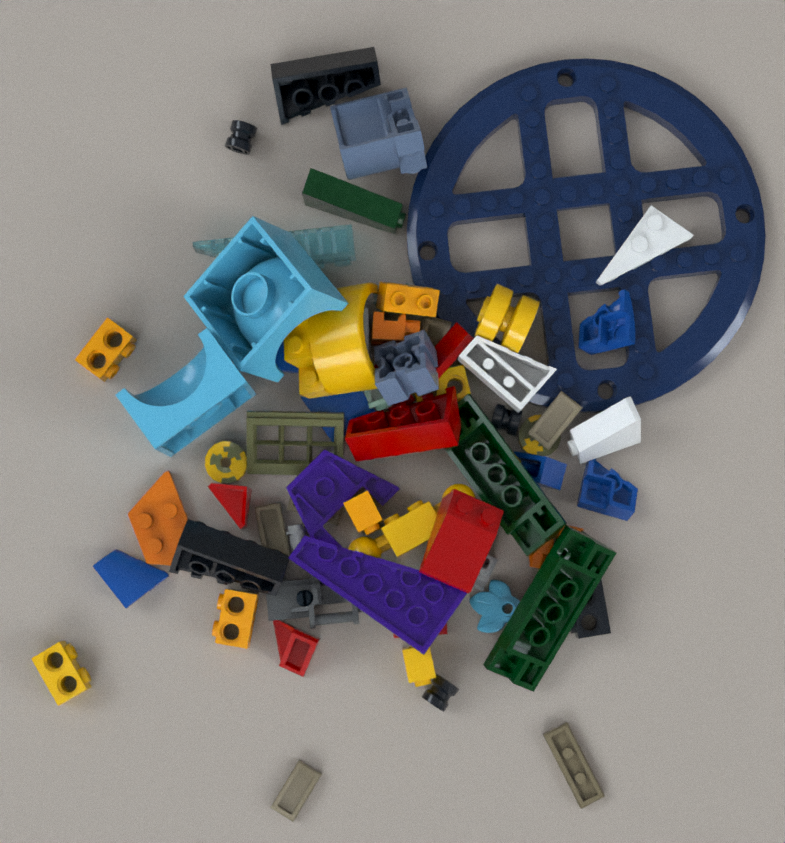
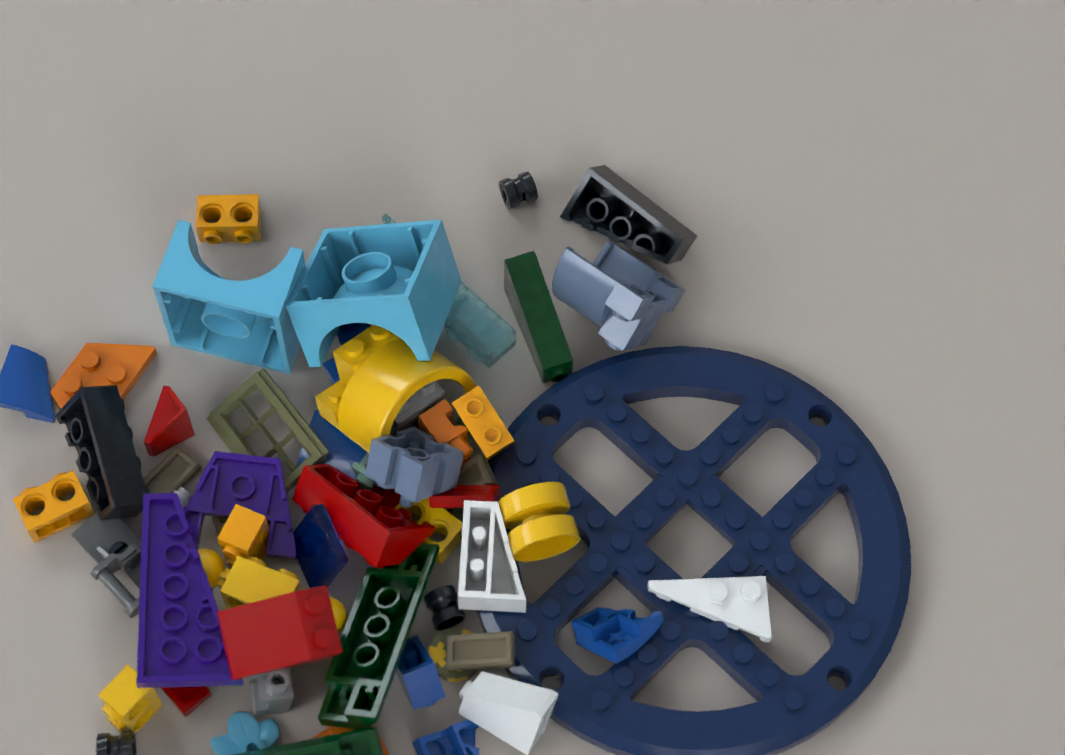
camera: 45 degrees right, 20 degrees down
(214, 459) = (199, 380): yellow piece -> none
(294, 647) = (65, 583): red slope -> none
(408, 470) = (319, 548): none -> clear blue tile

